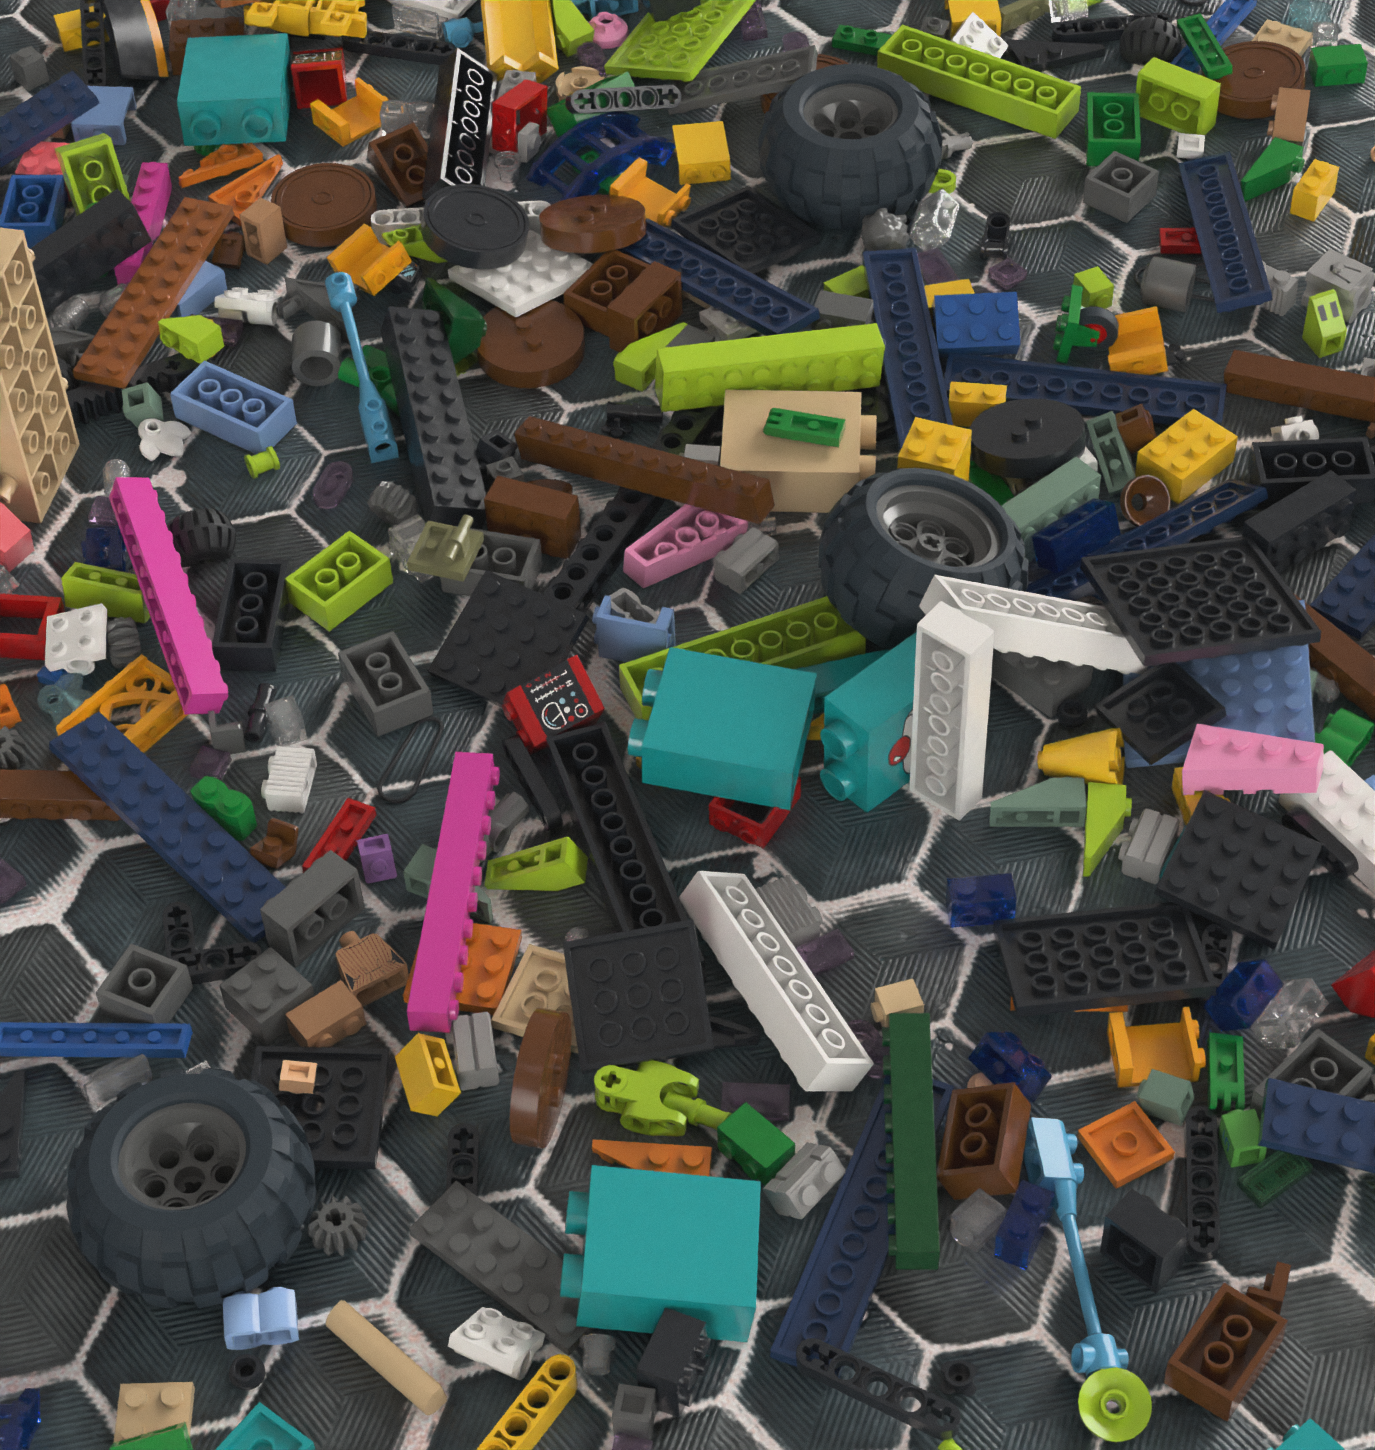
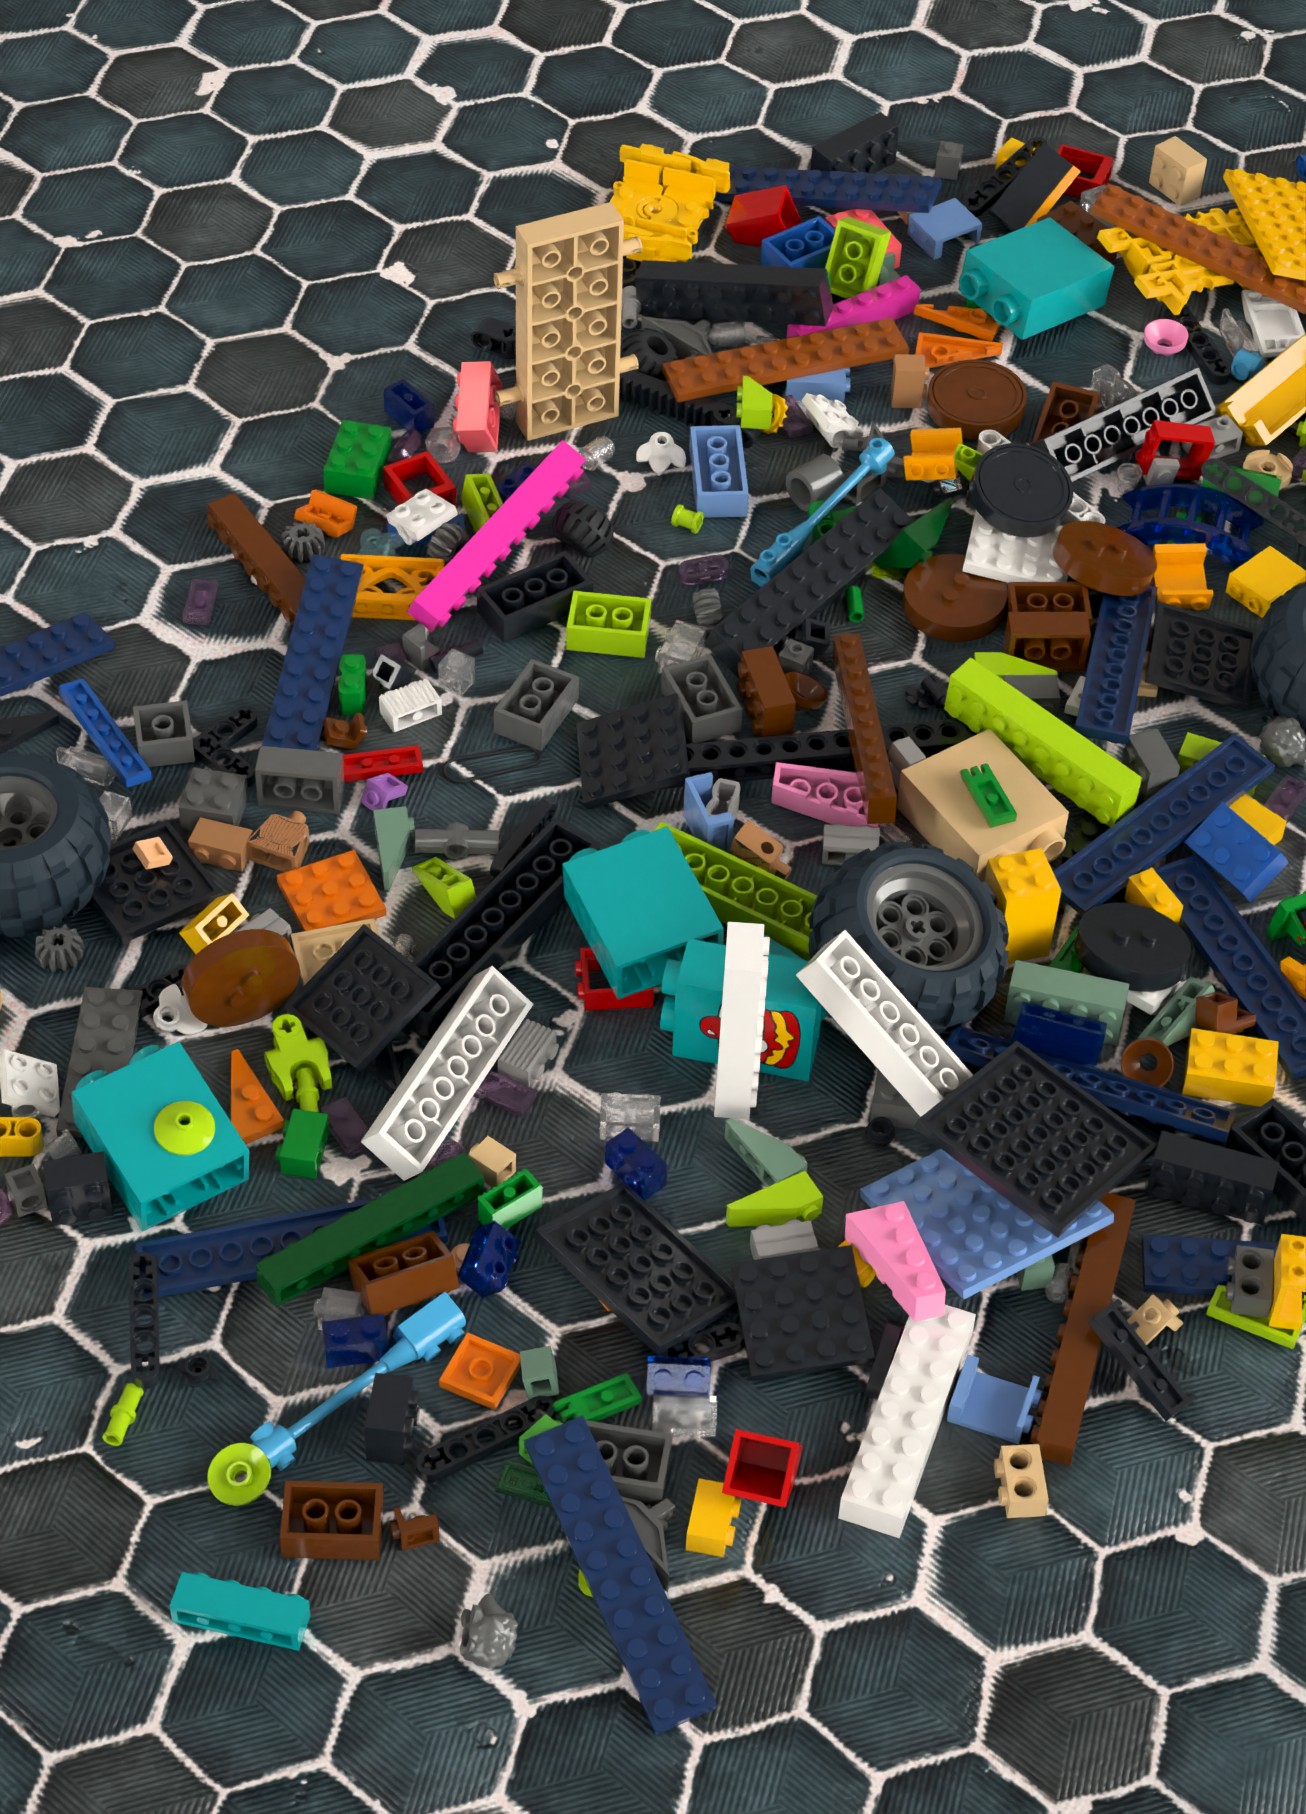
camera: 50 degrees right, 0 degrees up
(141, 403) = (674, 420): sand green brick -> none
(229, 250) = (876, 376): reddish brown bracket -> none
(243, 770) = (392, 673): none -> black brick
(319, 76) = (1108, 316): red slope -> none
(351, 118) = (1080, 359): light orange panel -> none
(377, 54) = (1165, 332): none -> bright pink piece
(446, 549) = (675, 659): olive plate -> none
(452, 893) = (371, 842): dark pink brick -> none
(477, 411) = (854, 604): none -> green axle
(504, 1162) = (176, 1007): none -> white plate
(553, 704) = (594, 806): slope -> none
(694, 1231) = (184, 1138): none -> lime dish
(705, 617) = (759, 850): none -> medium nougat torso
(804, 1180) = (291, 1186): light grey brick -> none
(925, 875) = (634, 1111): none -> clear brick
(956, 1016) = (510, 1200): none -> green brick
(1088, 756) = (835, 1164): yellow cone -> none
(1159, 710) = (914, 1174): black plate -> none
(1160, 1047) = (584, 1345): light orange panel -> none
(1345, 735) = (1007, 1325): green brick -> none

